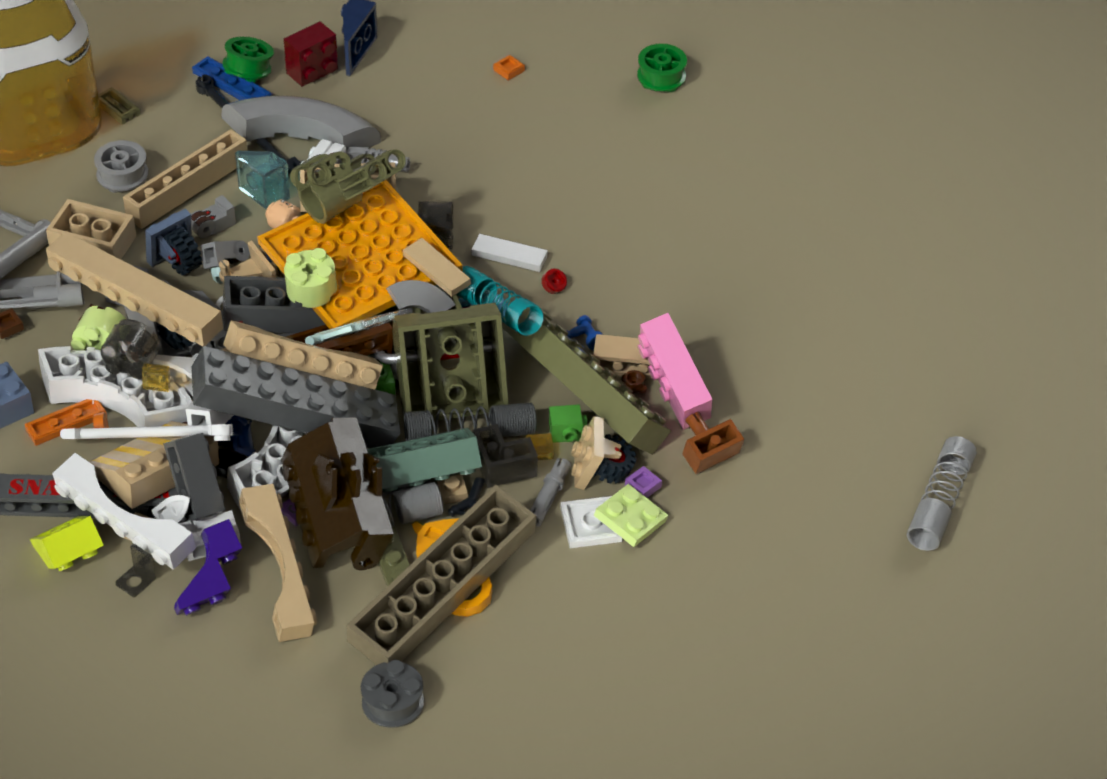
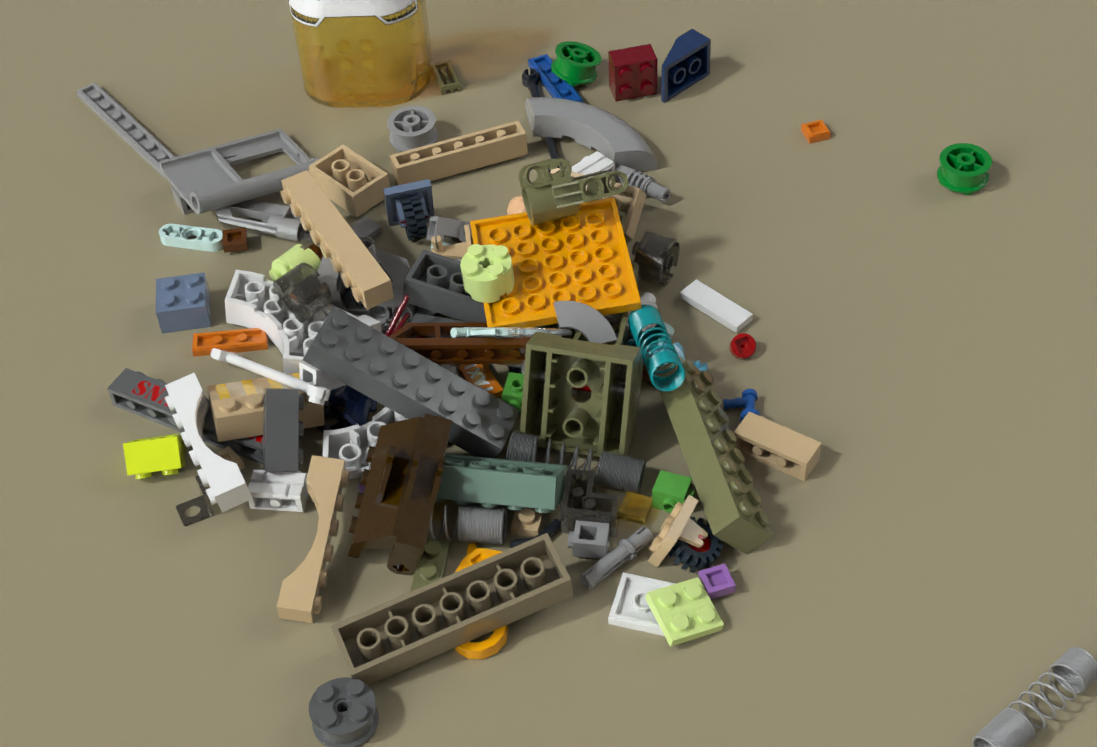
camera: 30 degrees right, 0 degrees up
(100, 421) = (253, 352): orange tile -> none
(156, 377) = (309, 323): clear yellow tile -> none
(172, 508) = (251, 457): white plate -> none
(210, 582) = (247, 534): dark purple arch -> none
(214, 218) = (463, 197): light grey leg -> none
(262, 176) = (515, 158): clear light blue slope -> none
(279, 350) = (470, 364): tan arch -> none
(436, 267) = (613, 297): tan tile -> none
(520, 483) = (589, 539): none -> light grey brick
(635, 380) = (766, 473): reddish brown plate -> none
(674, 369) = (800, 474): bright pink brick -> none
(710, 444) = (805, 564): dark orange brick -> none

